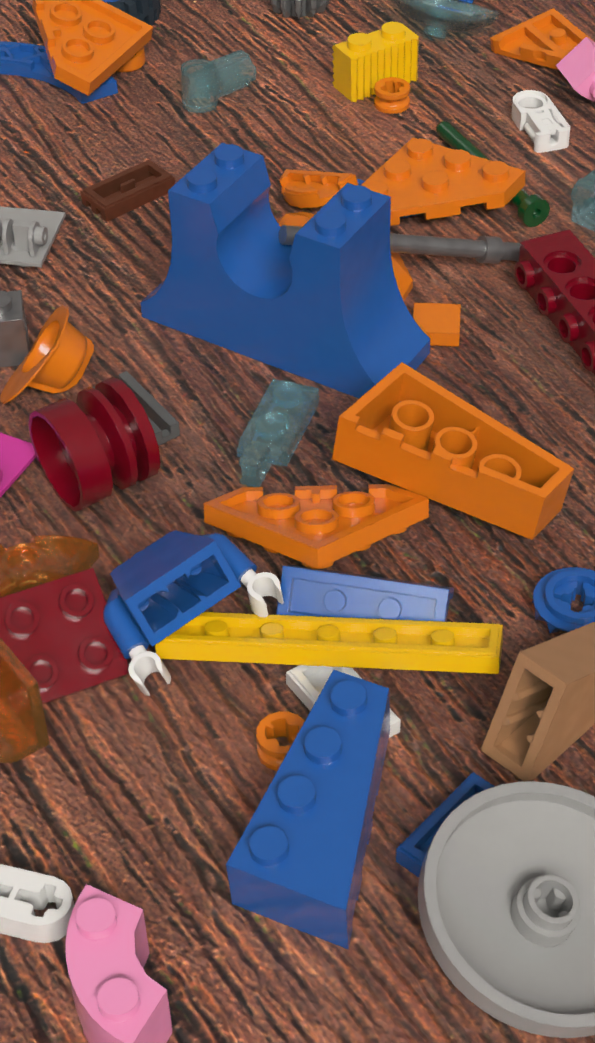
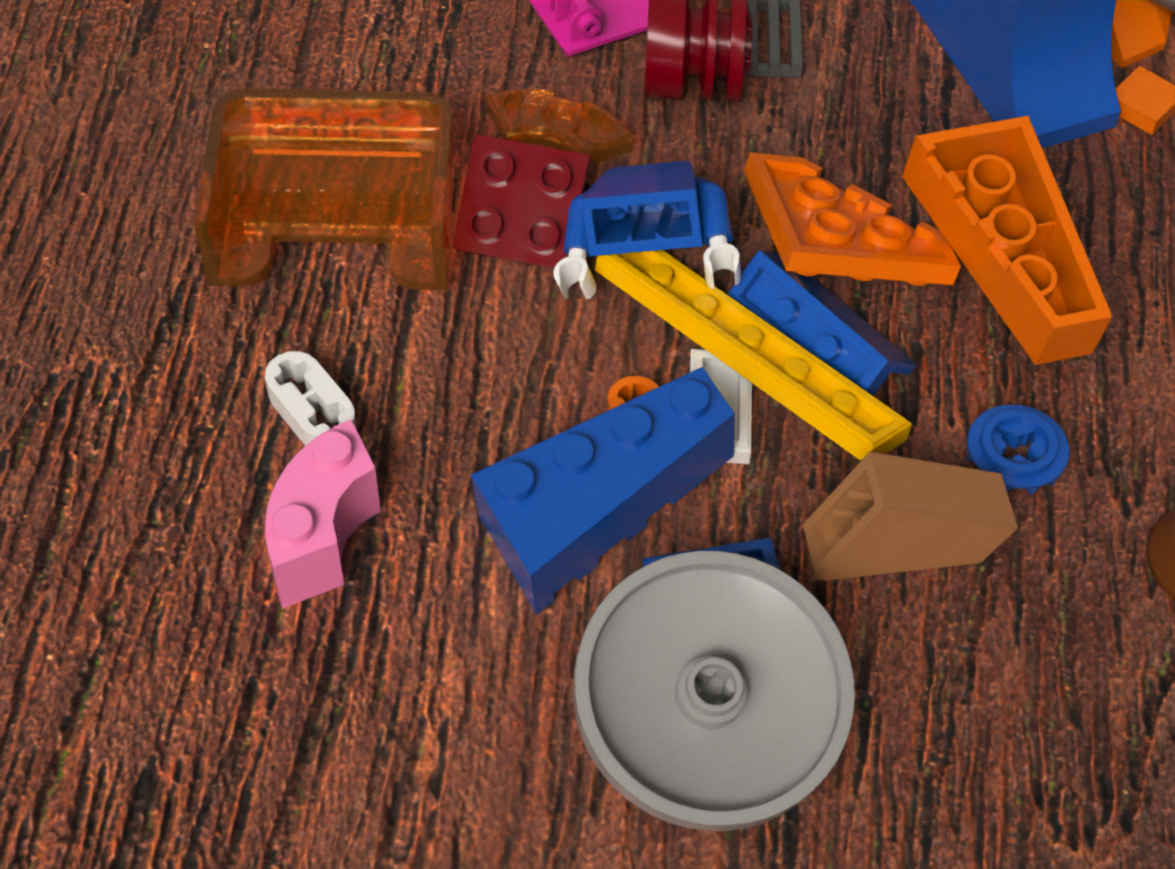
camera: 35 degrees right, 10 degrees up
(275, 429) = (889, 120): clear light blue hinge -> none

